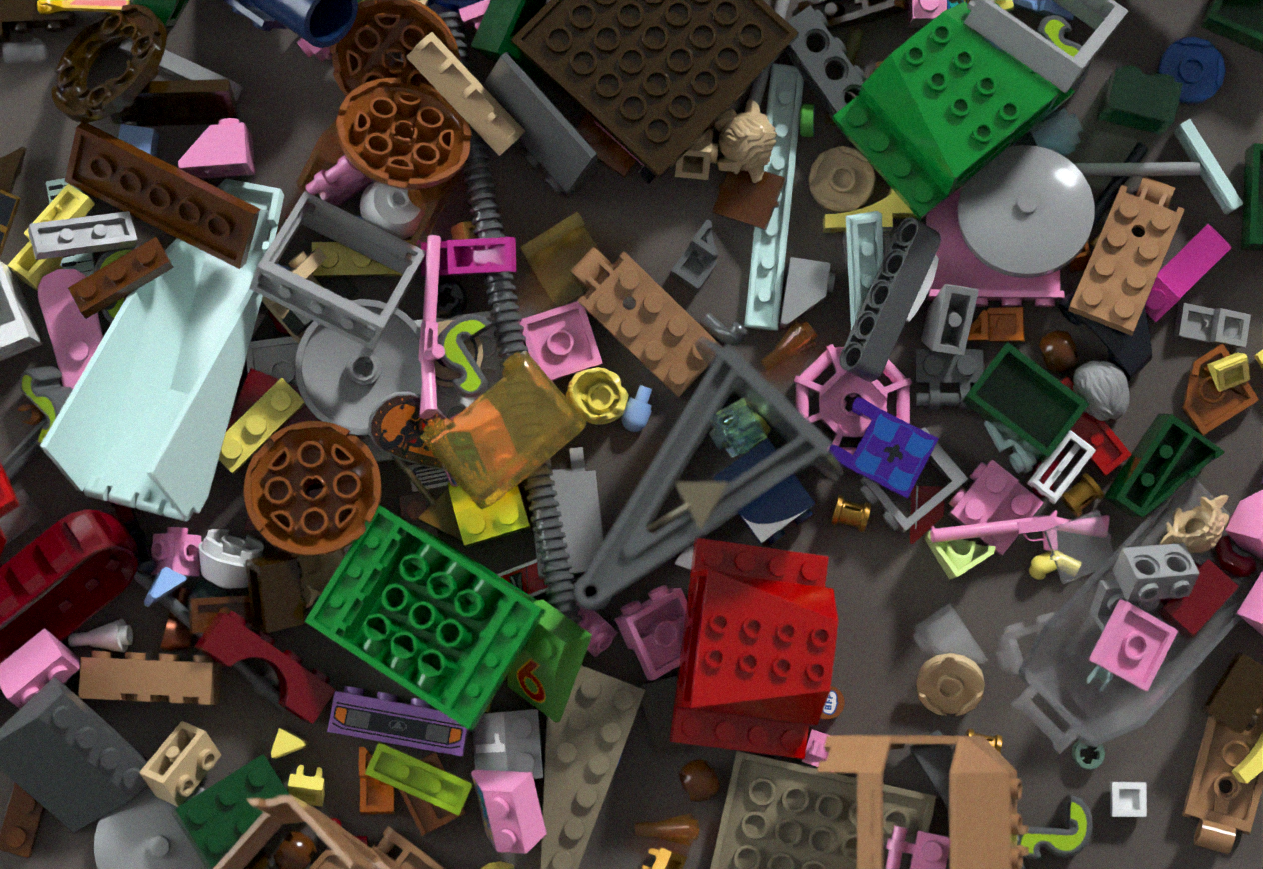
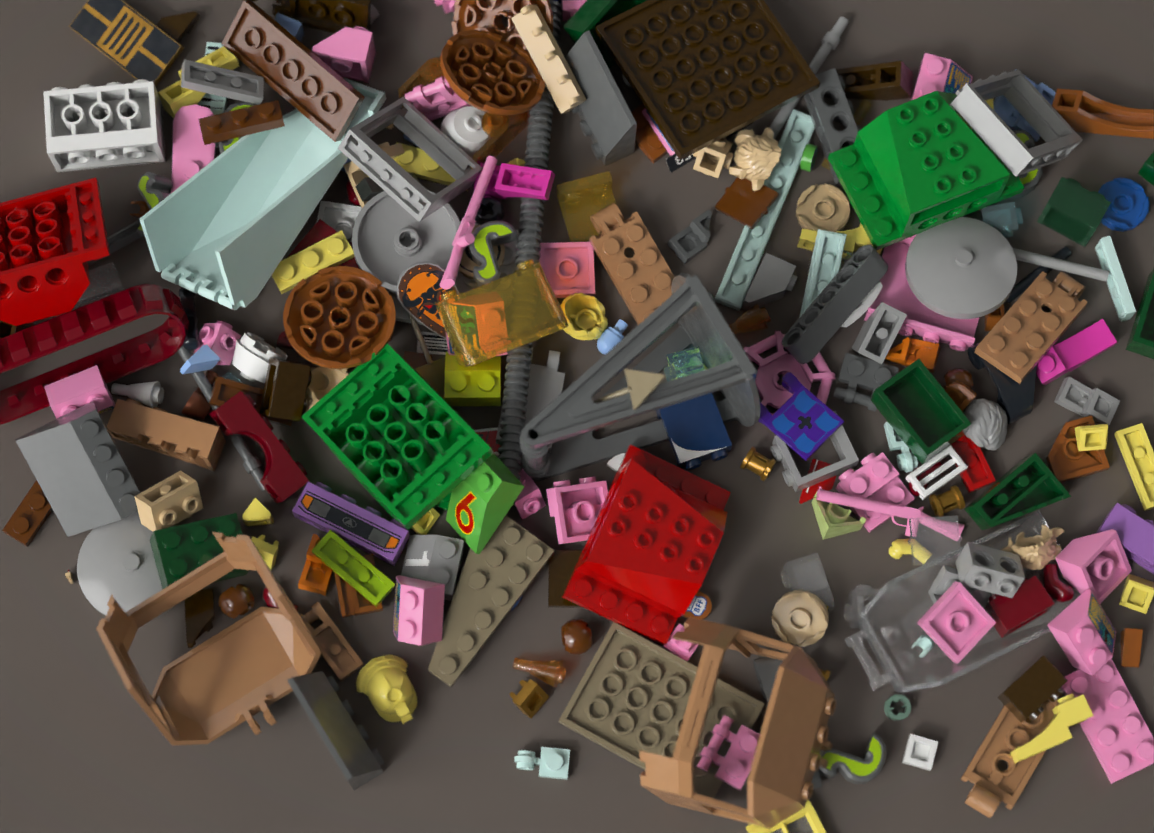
camera: 15 degrees right, 10 degrees down
(1064, 367) = (960, 394): none -> dark orange tile

